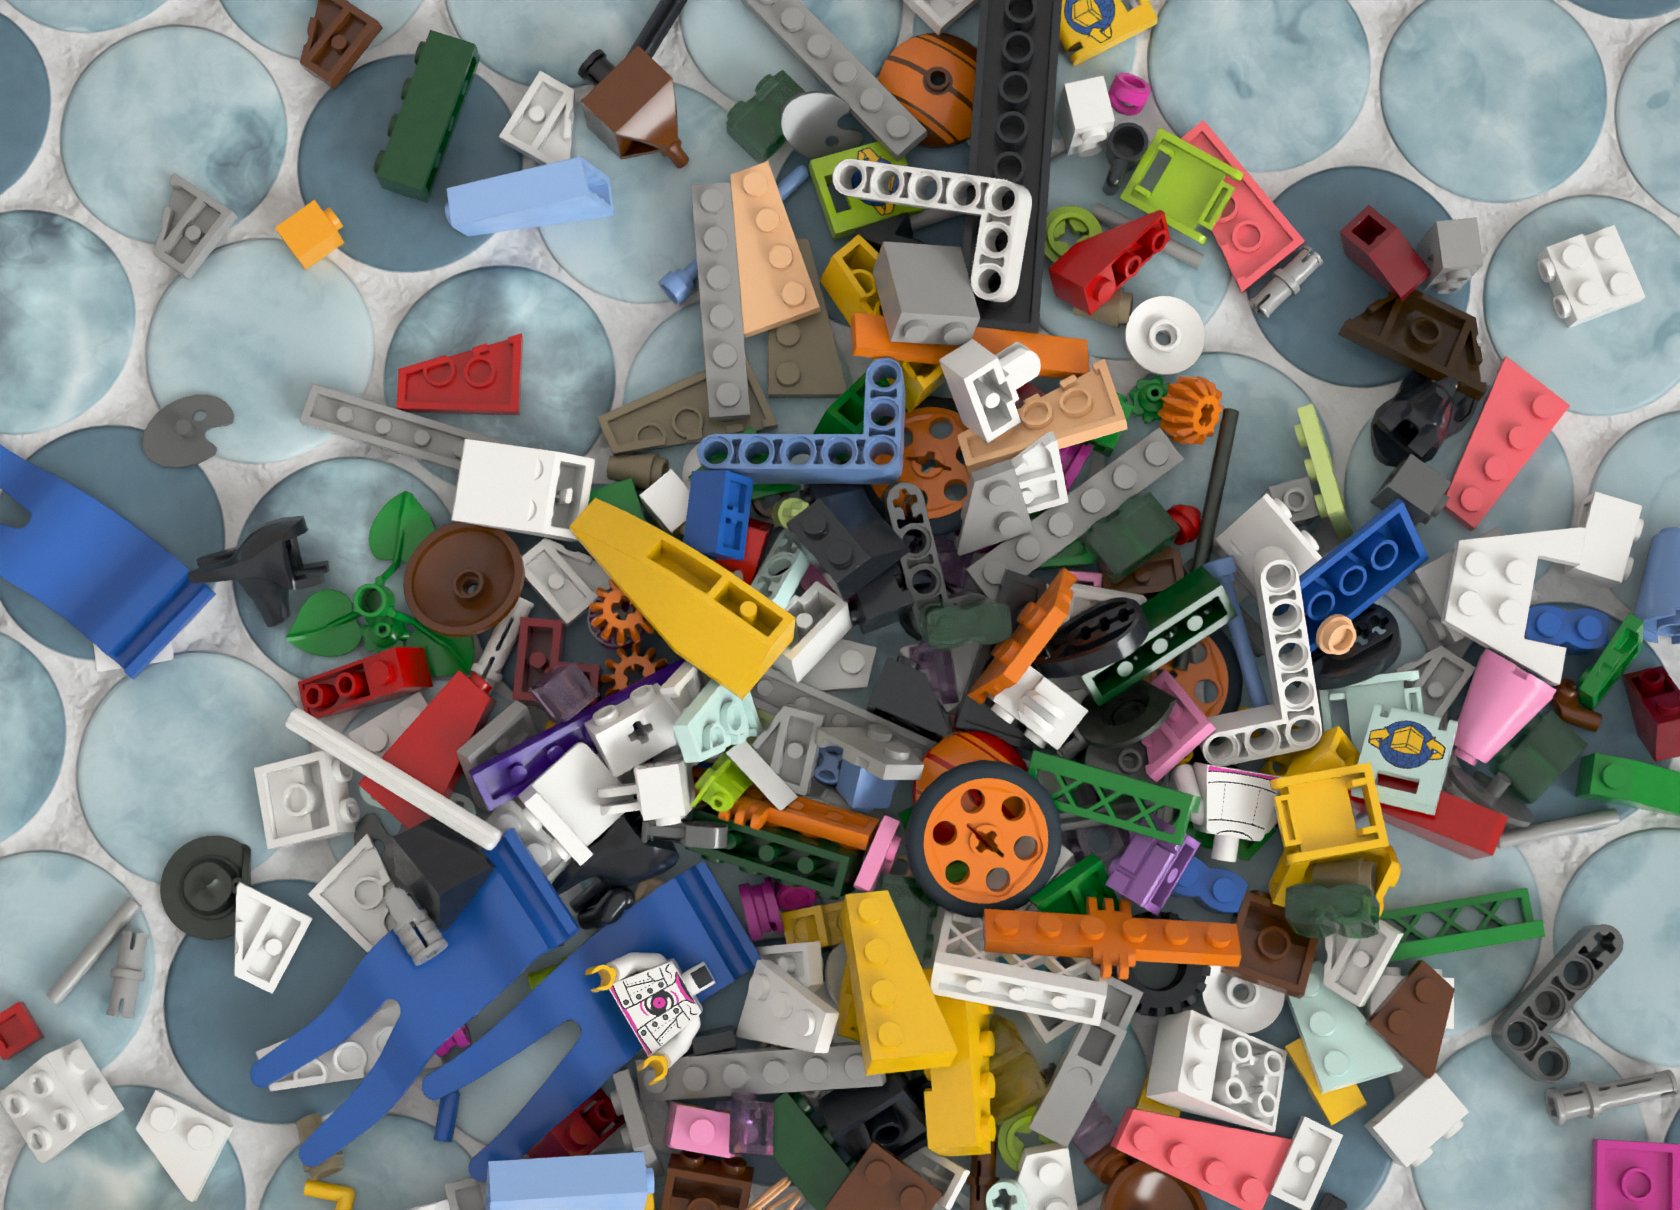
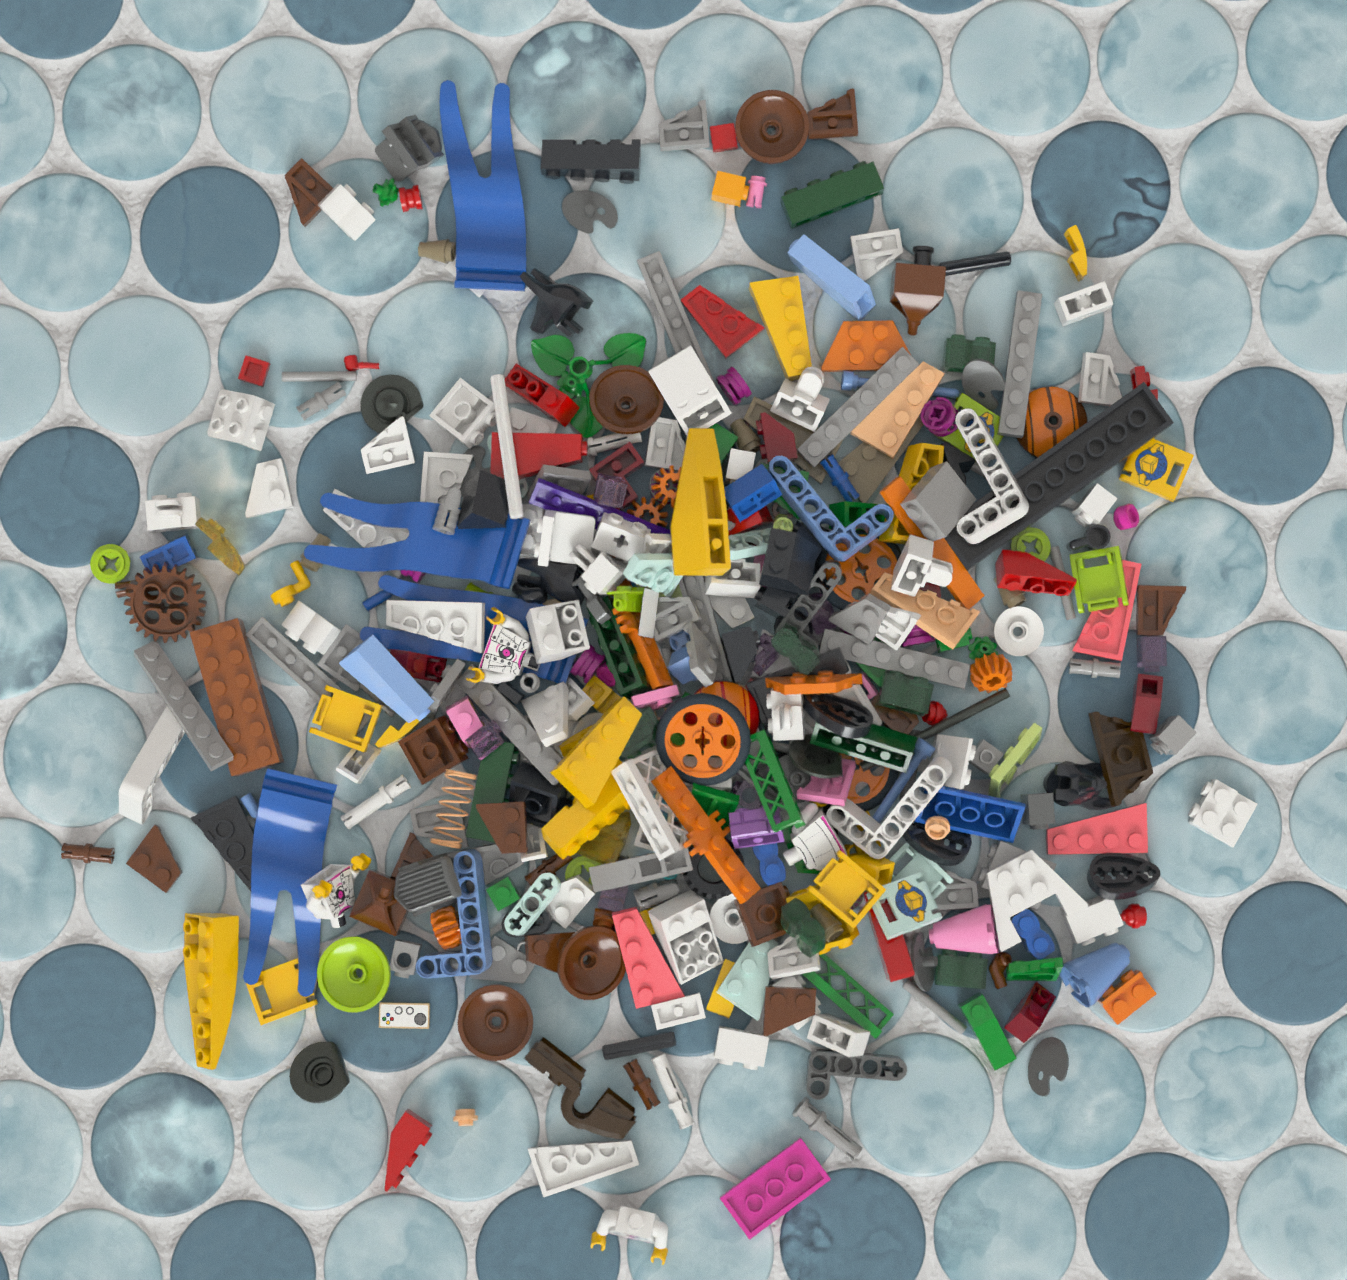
camera: 55 degrees right, 5 degrees up
(68, 660) = (439, 250): none -> dark tan cone
(115, 893) = (352, 364): none -> red hand
(124, 371) = (592, 160): none -> black wedge
(241, 190) = (723, 137): none -> red tile
(264, 99) = (777, 111): none -> reddish brown dish
(342, 204) = (756, 191): none -> bright pink pin
(528, 299) = (784, 319): none -> yellow wedge
(554, 1046) = (449, 622): none -> white wing
(562, 431) = (733, 386): none -> magenta wheel
(649, 234) = (863, 346): none -> orange wing
(653, 361) = (801, 400): none -> white brick
(673, 431) = (776, 439): none -> dark red slope
(687, 912) = (557, 631): none -> white slope
(734, 1001) = (523, 682): none -> light grey pin
(790, 396) = (839, 478): none -> blue pin
(826, 218) = (939, 416): none -> magenta wheel
(1129, 1066) = (656, 893): none -> light grey hinge
(1271, 149) = (1155, 608): none -> reddish brown wing
(1325, 197) = (1151, 653): none -> clear purple brick
(1503, 980) = (838, 1035): none -> white brick
(1590, 473) = (1121, 888): none -> black piece
(1638, 484) = (1134, 915): none -> red plate

